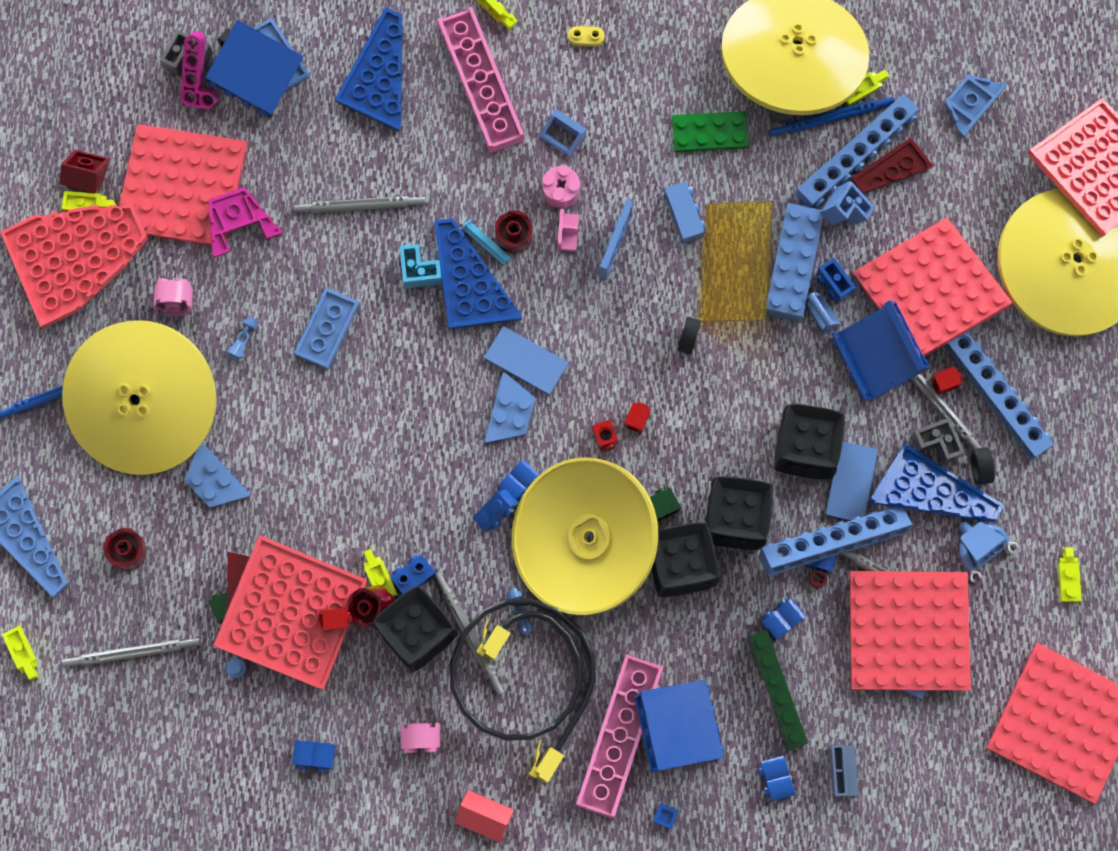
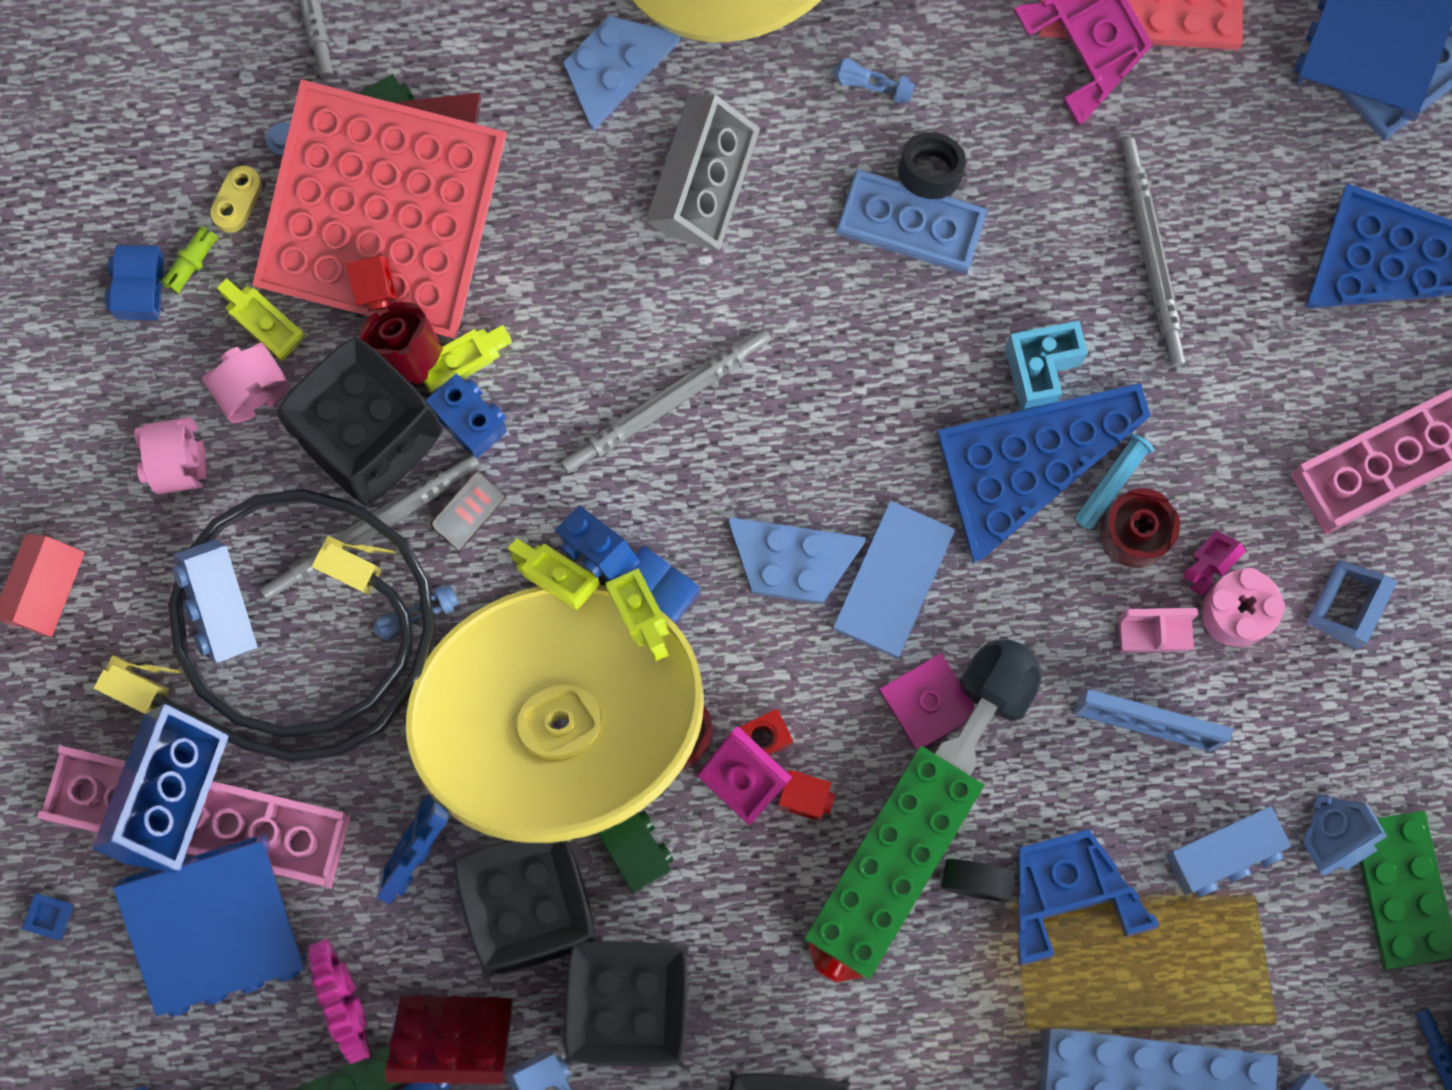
camera: 80 degrees right, 0 degrees up
(268, 697) = (238, 197): none -> light yellow plate
(286, 436) = (703, 172): none -> light grey slope
(302, 725) = (189, 260): none -> lime pin
(303, 324) = (938, 146): none -> black tyre
(343, 686) = (261, 319): none -> neon yellow hinge
(382, 693) = (246, 382): none -> bright pink brick
(415, 469) = (665, 401): none -> light grey axle
(466, 580) = (467, 511): none -> slope
(506, 535) = (554, 573): none -> neon yellow hinge
(506, 714) = (214, 601): none -> brick
(531, 197) = (1214, 556): none -> dark pink plate
(536, 488) = (639, 612): none -> neon yellow hinge
(593, 350) = (928, 702): none -> dark pink plate
(608, 745) = (161, 791): none -> blue slope
(625, 445) = (743, 776): none -> dark pink plate
(650, 617) = (411, 849): none -> blue wing
(657, 362) = (917, 823): none -> green piece
(680, 156) = (1341, 833): none -> medium blue plate
(690, 292) = (1066, 877): none -> blue wing
(725, 658) = (341, 1009): none -> dark pink gear
(748, 604) = (450, 1040): none -> dark red plate

